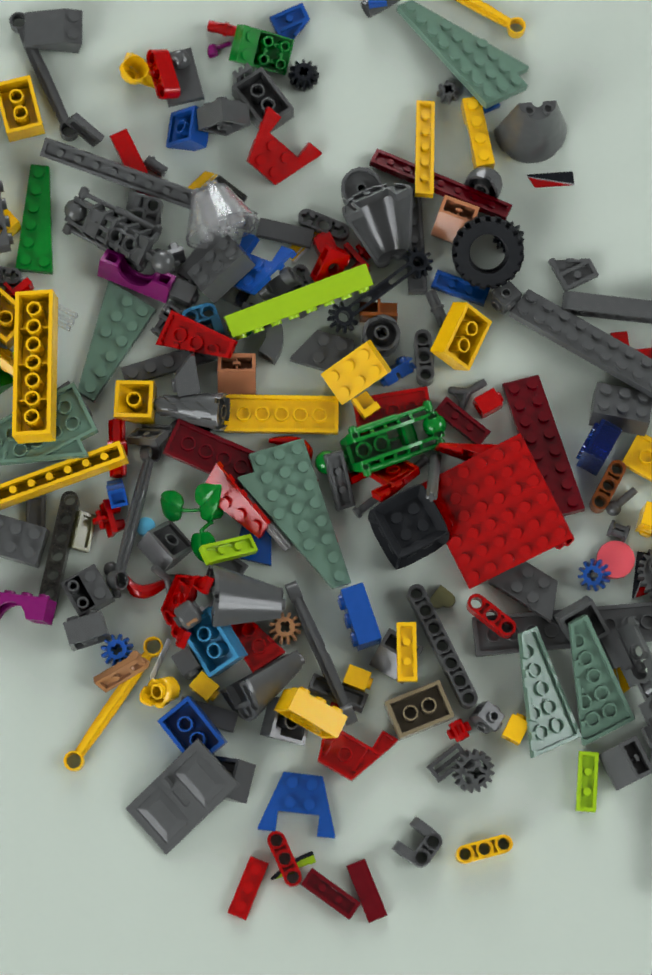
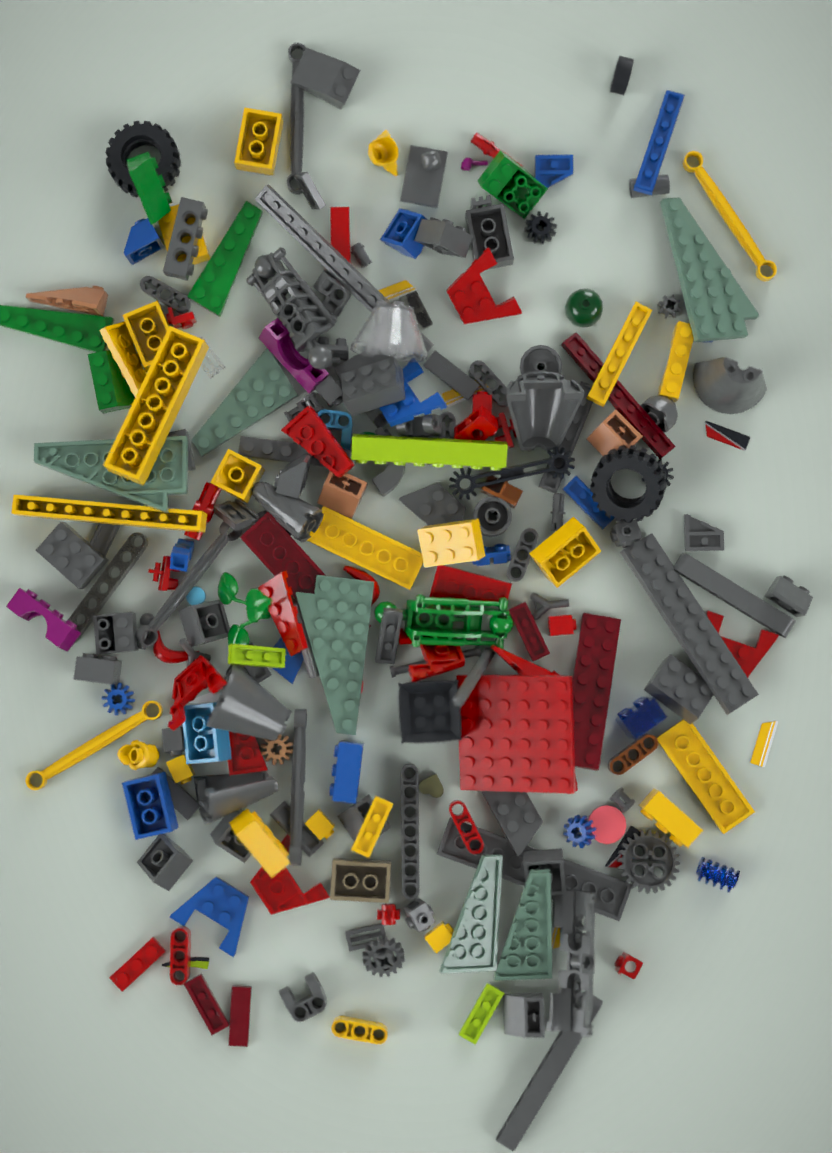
camera: 30 degrees right, 10 degrees up
(82, 532) = (136, 575): olive tile -> none
(121, 671) = (112, 721): medium nougat plate -> none
(159, 661) = (152, 725): white sticker -> none
(163, 74) = (407, 168): red beam -> none
(182, 796) = (115, 859): dark grey door -> none
(188, 614) = (190, 702): dark grey head -> none
(365, 405) = (446, 576): yellow panel -> none
(374, 125) = (584, 308): none -> dark green cylinder
(614, 507) = (631, 775): dark grey bar -> none

